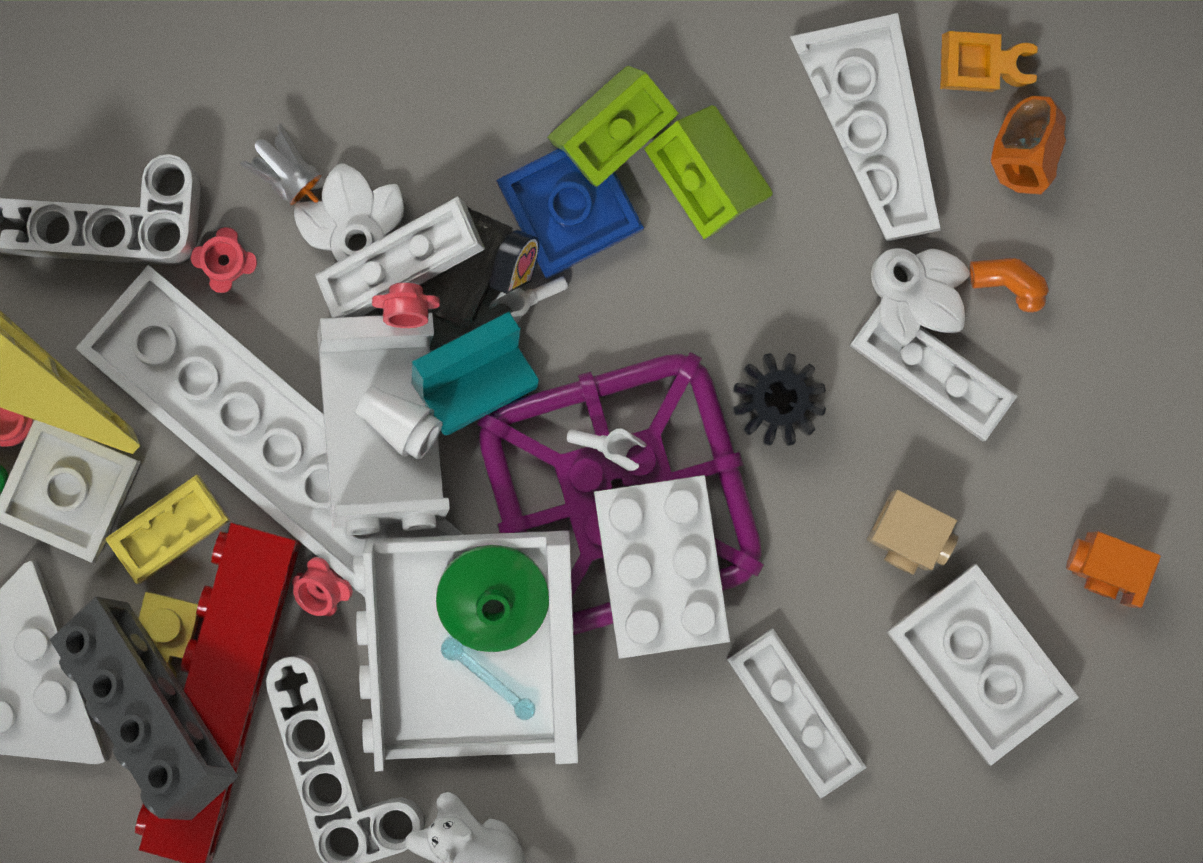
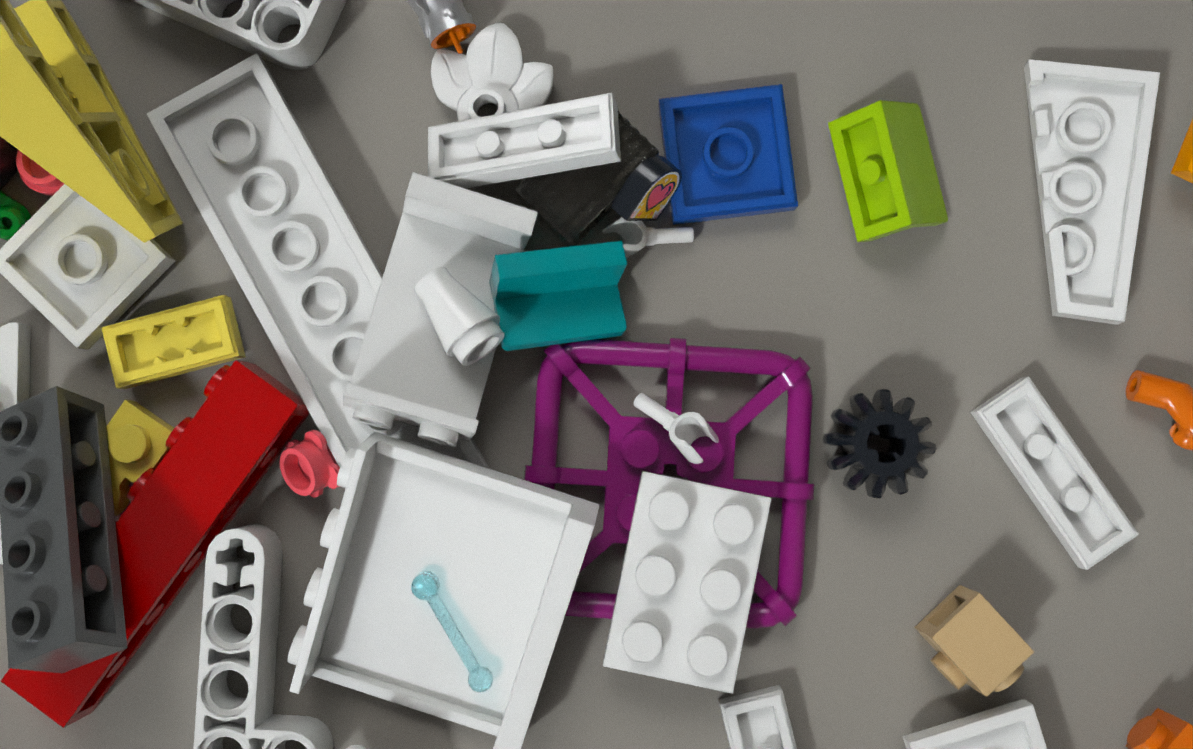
camera: 30 degrees right, 0 degrees up
(208, 255) = (334, 63): coral plate -> none
(405, 305) = (510, 191): coral plate -> none
(488, 575) = (490, 524): green dish -> none
(613, 124) = (809, 83): lime panel -> none
(925, 298) = (1074, 387): white plate -> none

